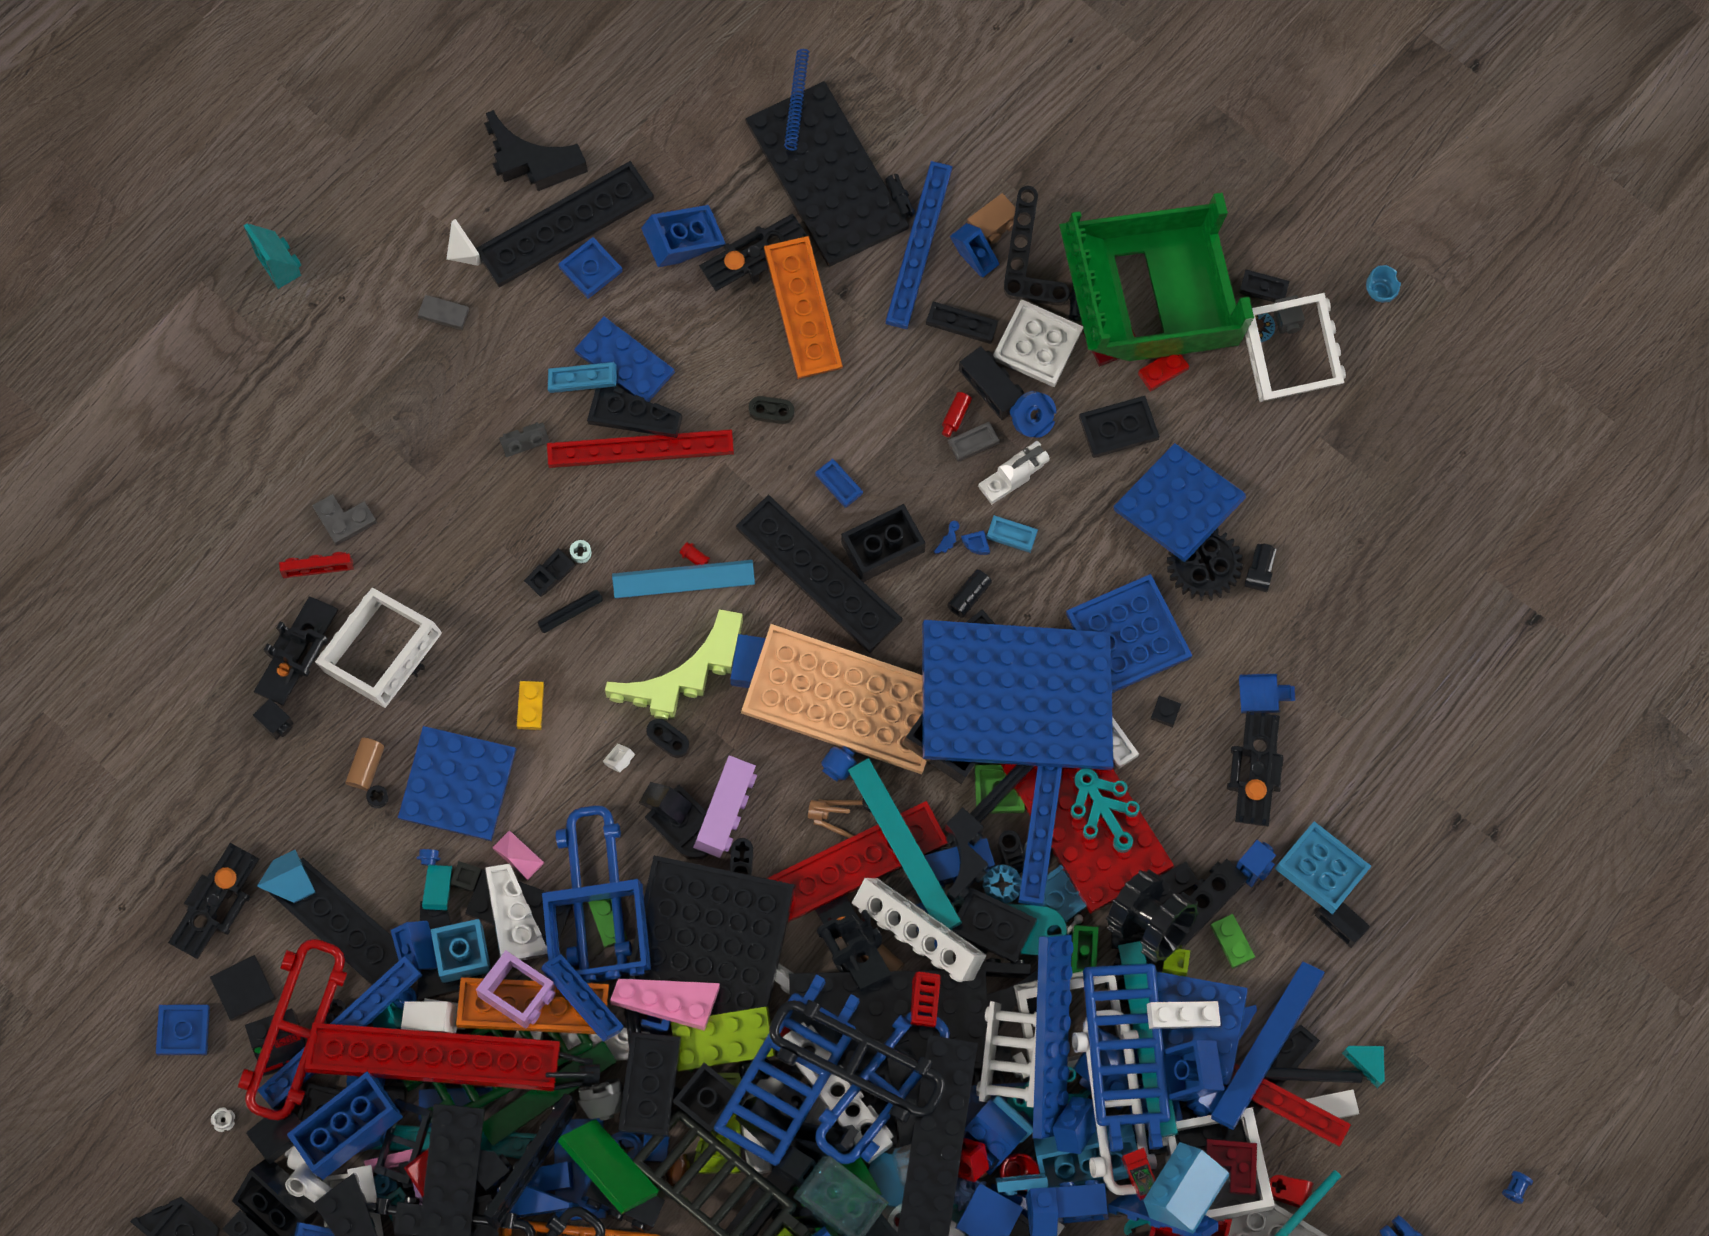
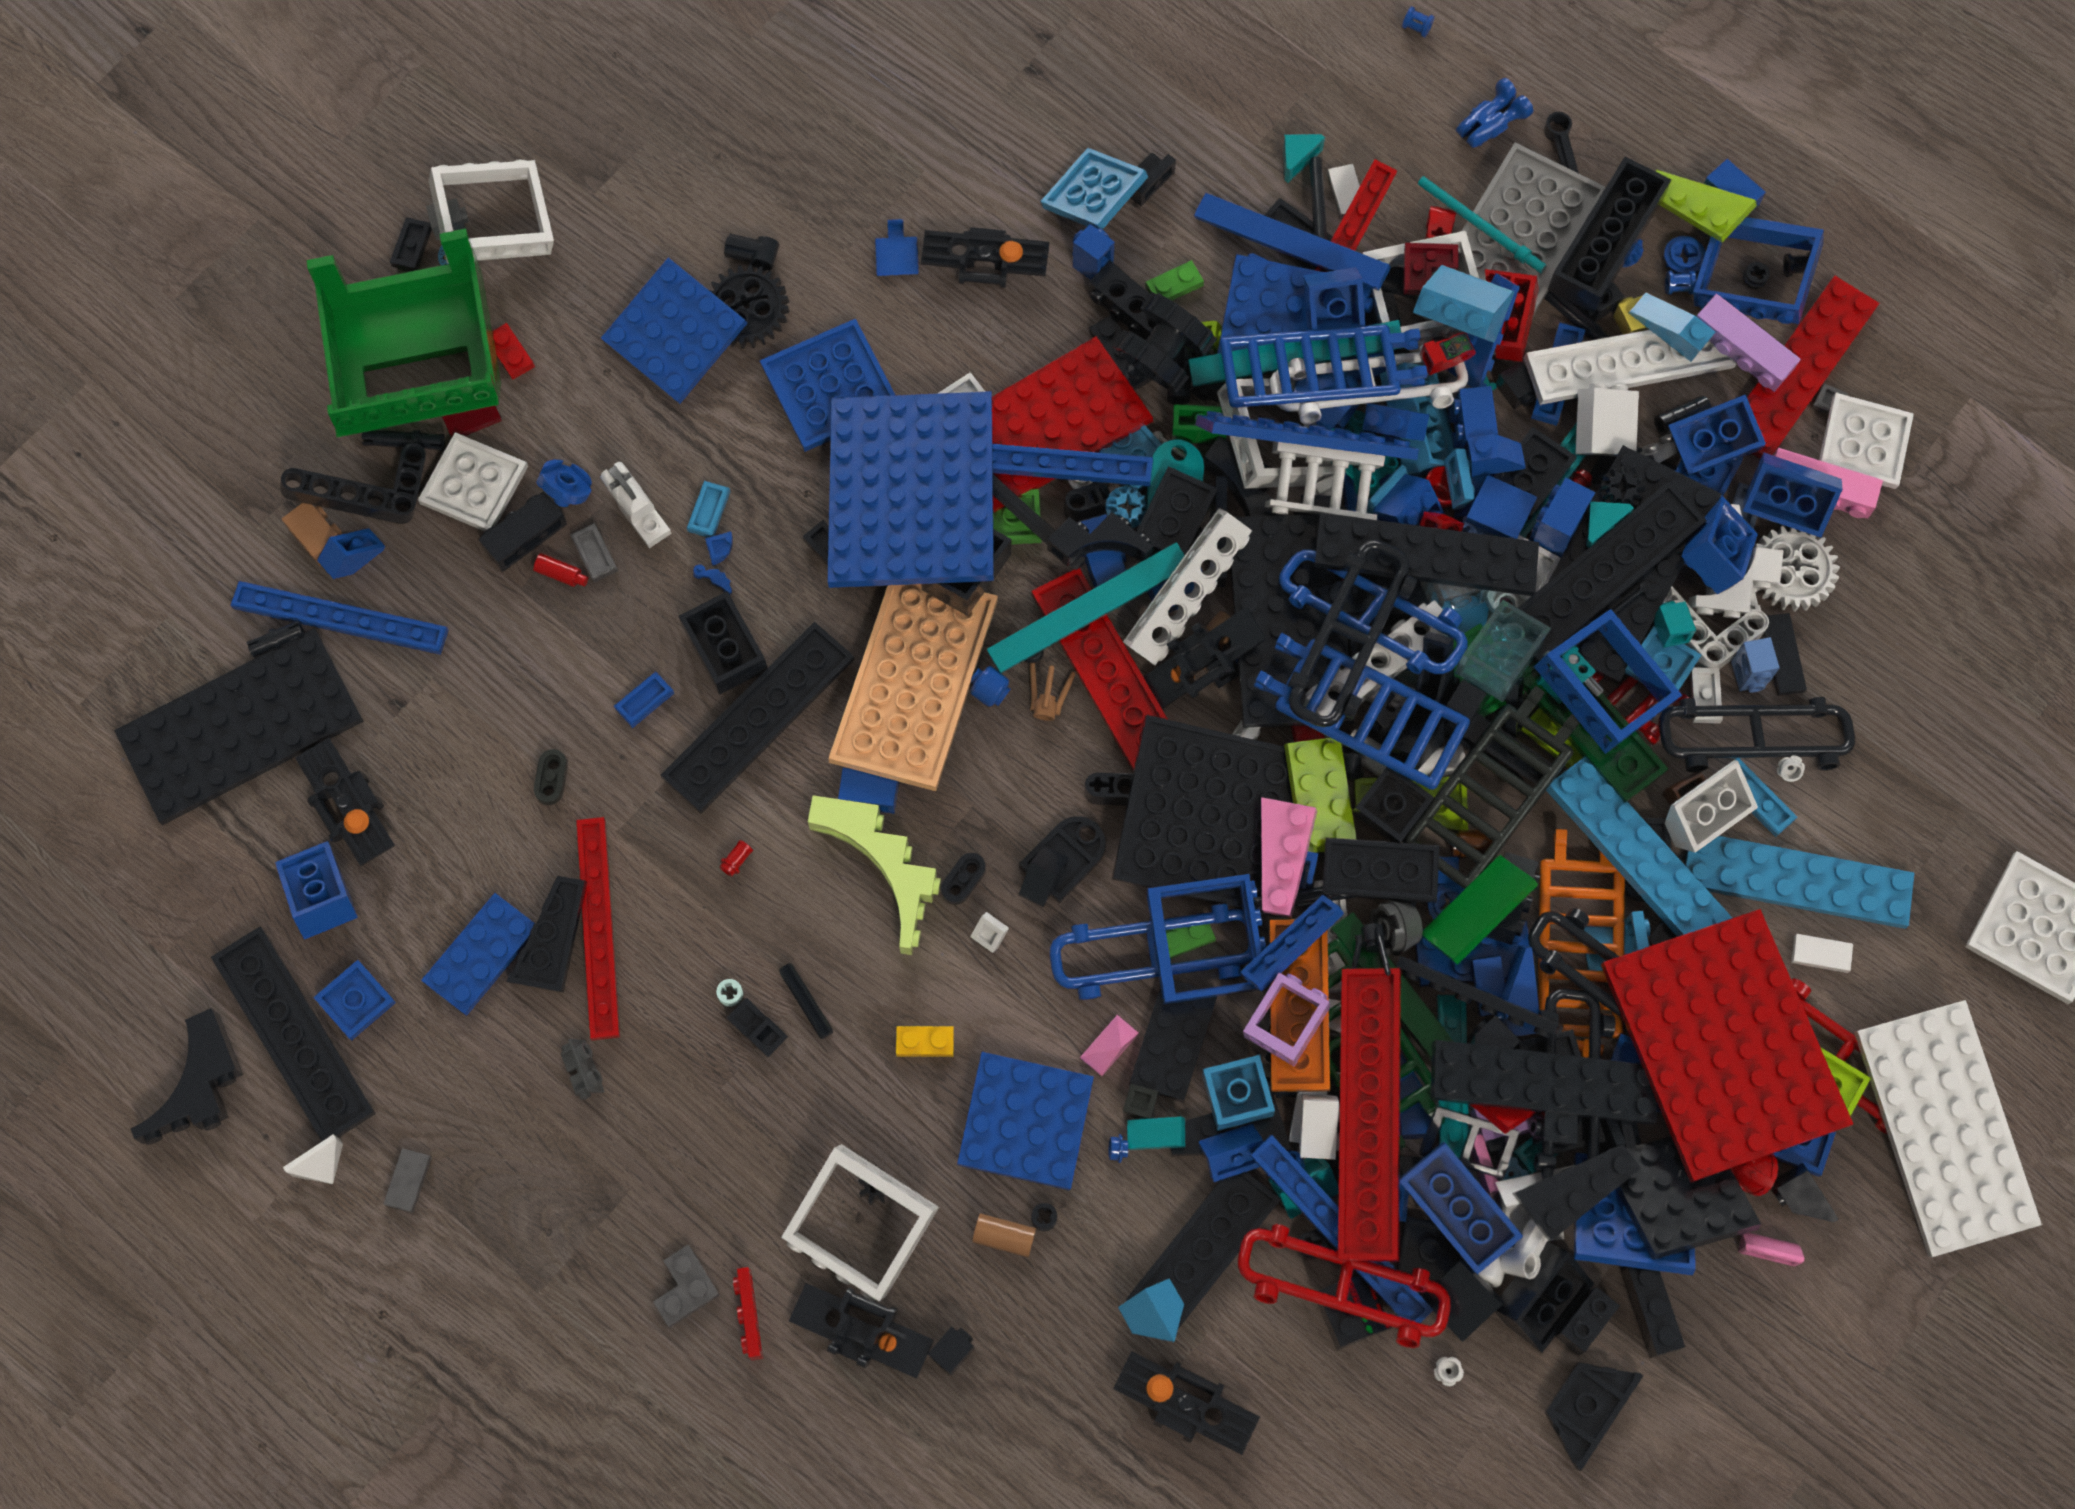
camera: 90 degrees left, 0 degrees up
(182, 1030) = (1345, 1429): blue plate -> none
(242, 988) = (1287, 1361): black tile -> none
(273, 255) = (324, 1402): teal slope -> none
(512, 915) = (1202, 1036): white wing -> none
(582, 377) = (503, 1001): dark azure tile -> none
(683, 578) = (766, 869): dark azure tile -> none
(724, 807) = (1047, 807): lavender brick -> none
(796, 97) = (140, 756): blue piece -> none
(803, 307) = (420, 740): orange plate -> none
(925, 983) = (1263, 563): red slope -> none
(962, 322) = (444, 566): black plate -> none
(969, 593) = (782, 551): black axle -> none
(1103, 806) = (1036, 404): teal plant -> none
(1119, 426) = (579, 396): black plate -> none
(1165, 711) = (918, 348): black plate -> none
(1183, 1015) = (1273, 310): white plate -> none
(1383, 284) = (414, 123): dark azure hair -> none

